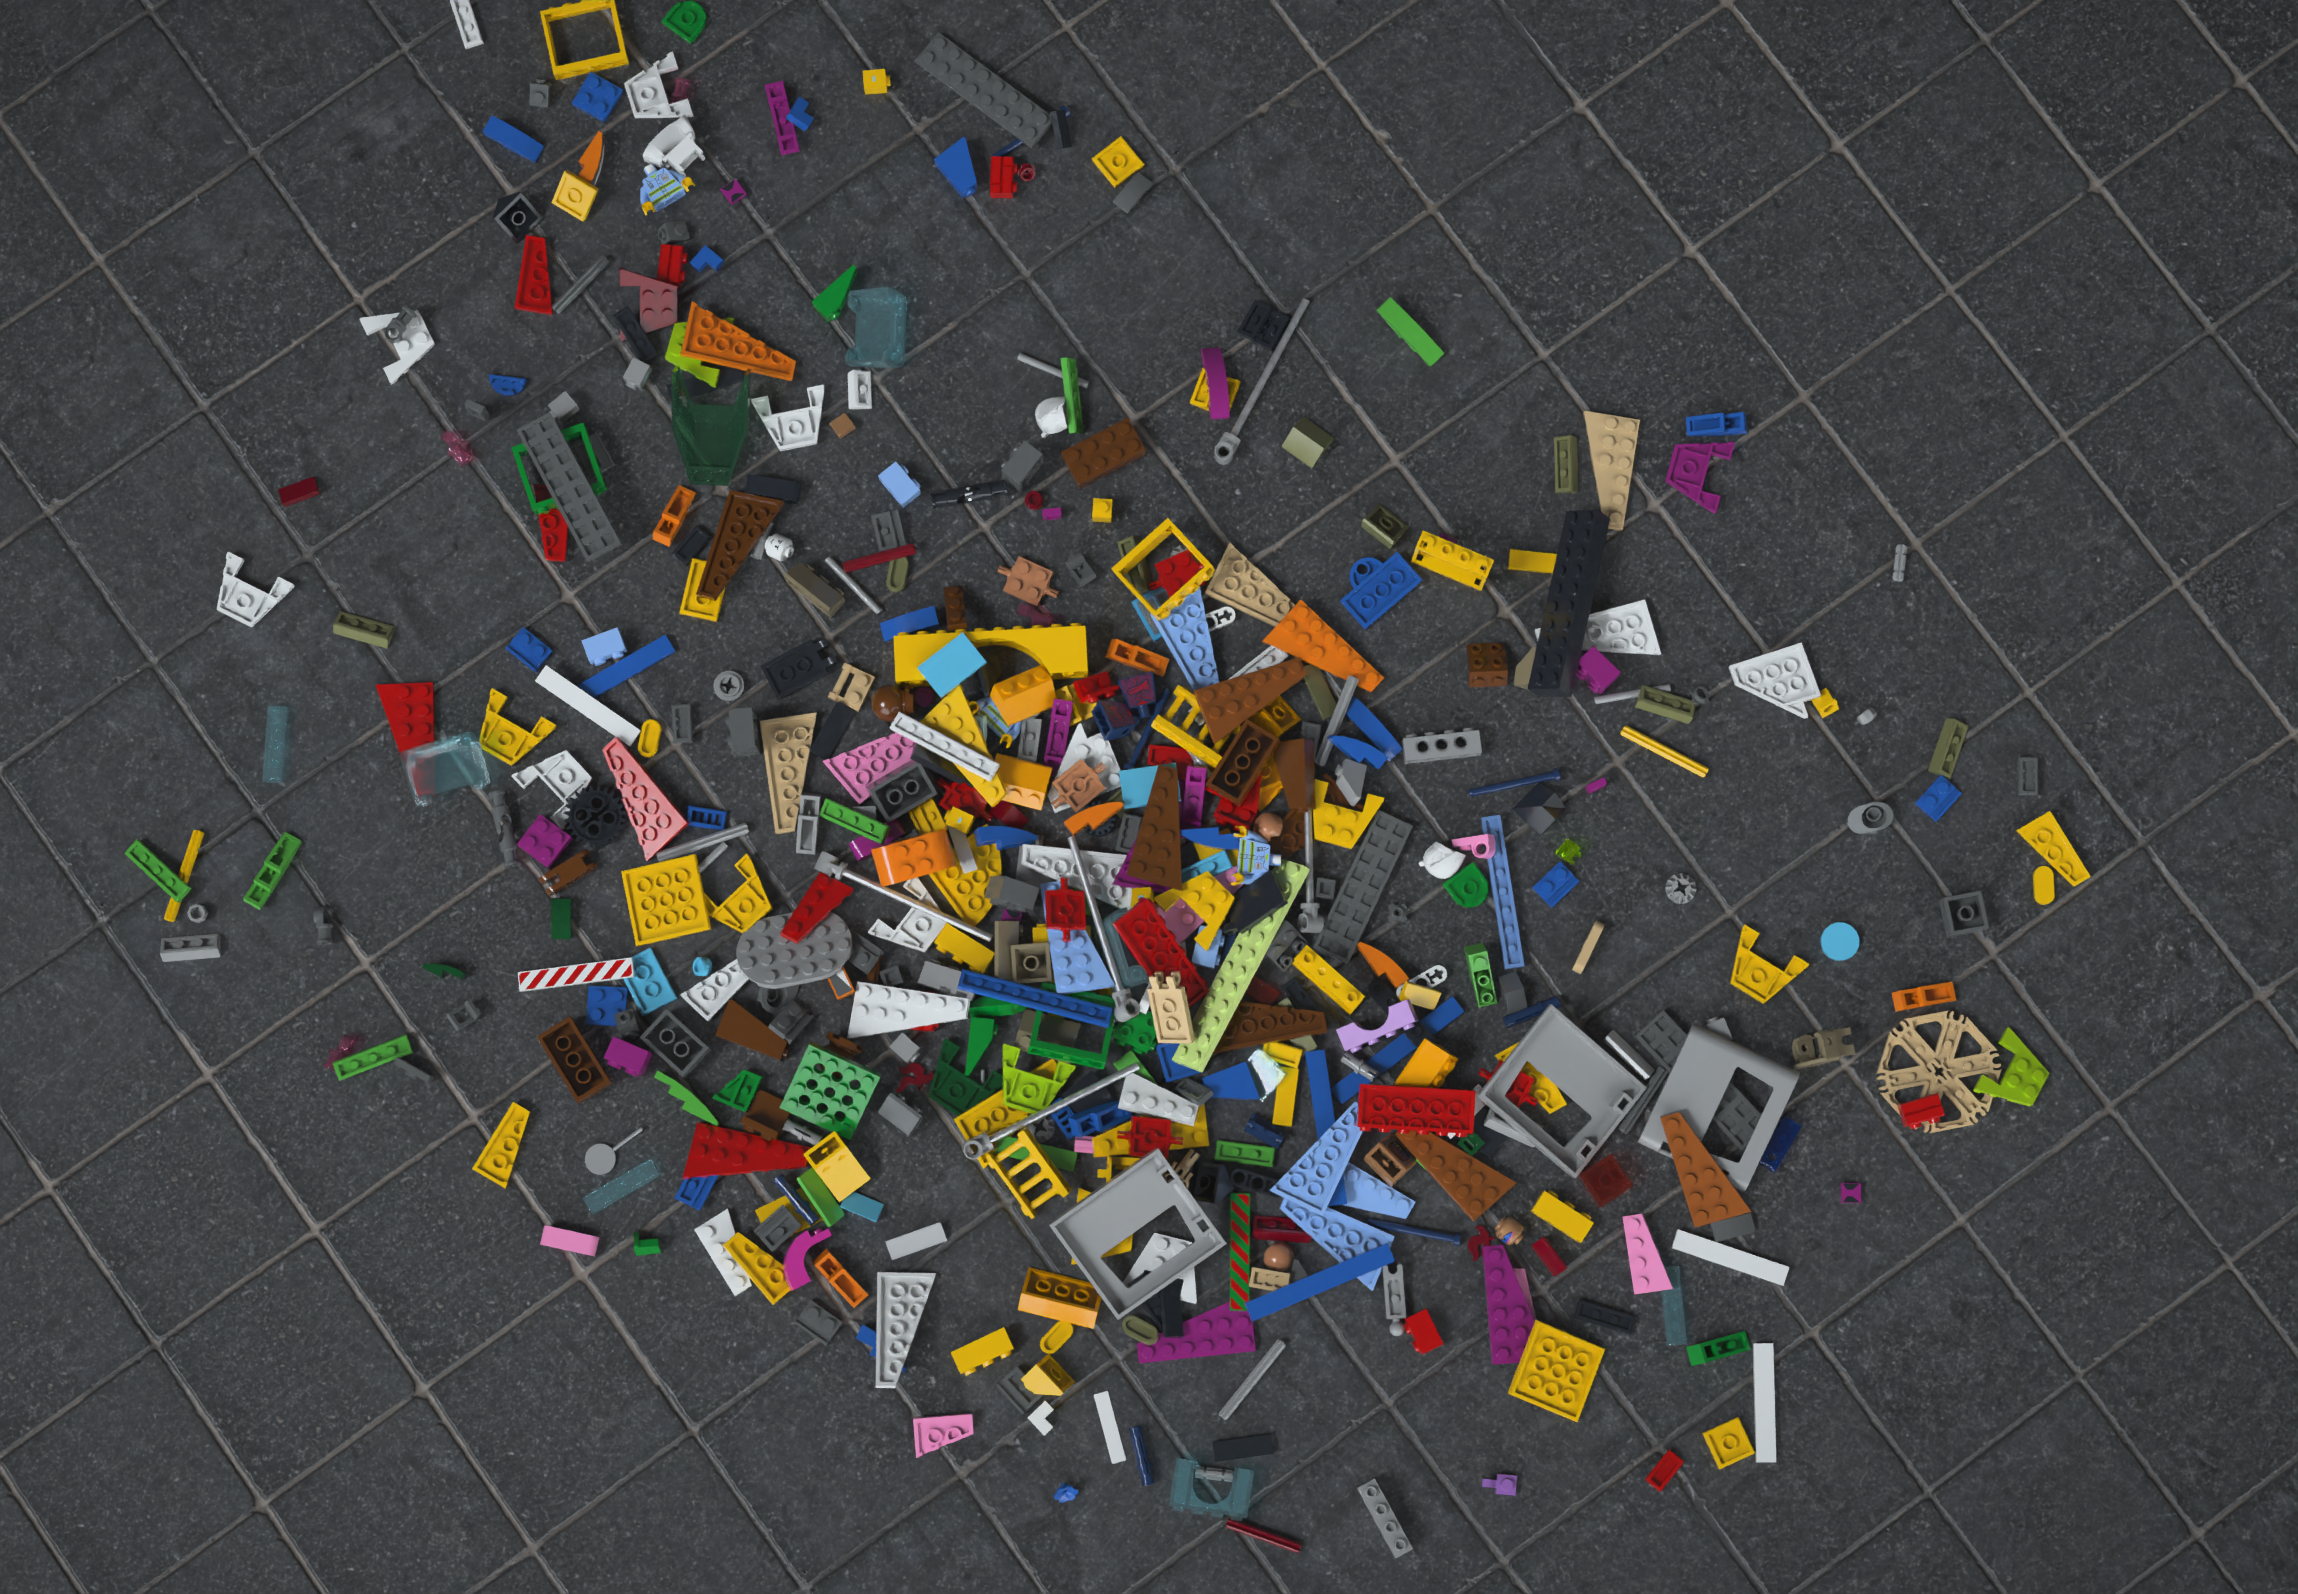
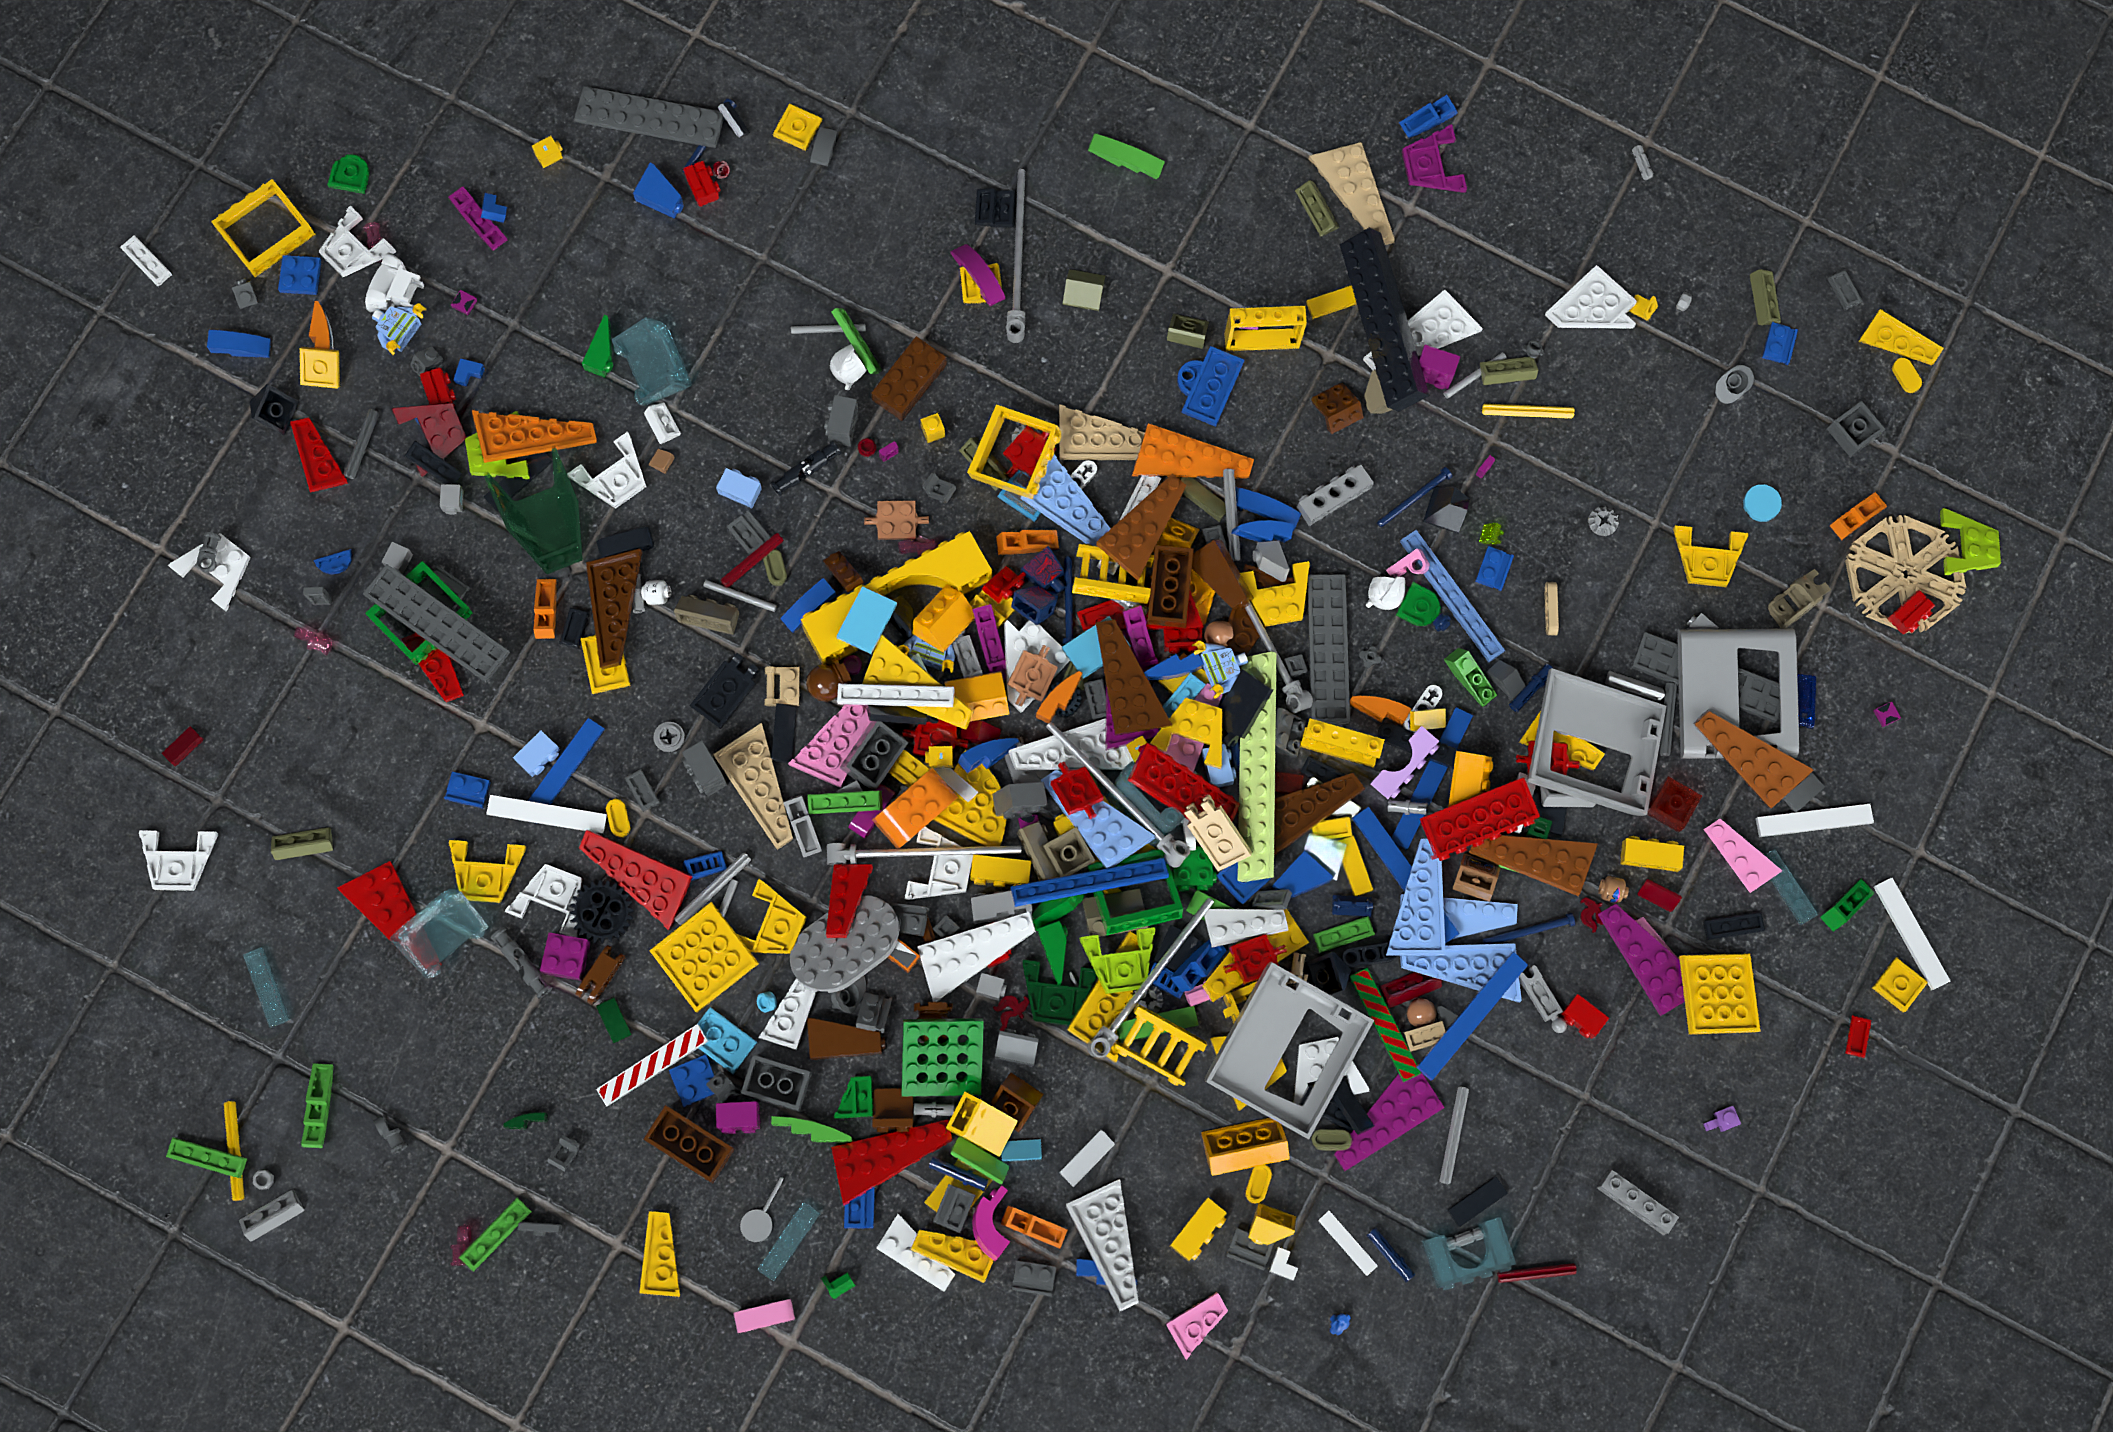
camera: 30 degrees left, 5 degrees down
(878, 1159) = (1016, 1099): none -> reddish brown slope
(1479, 912) = (1442, 622): none -> dark blue plate

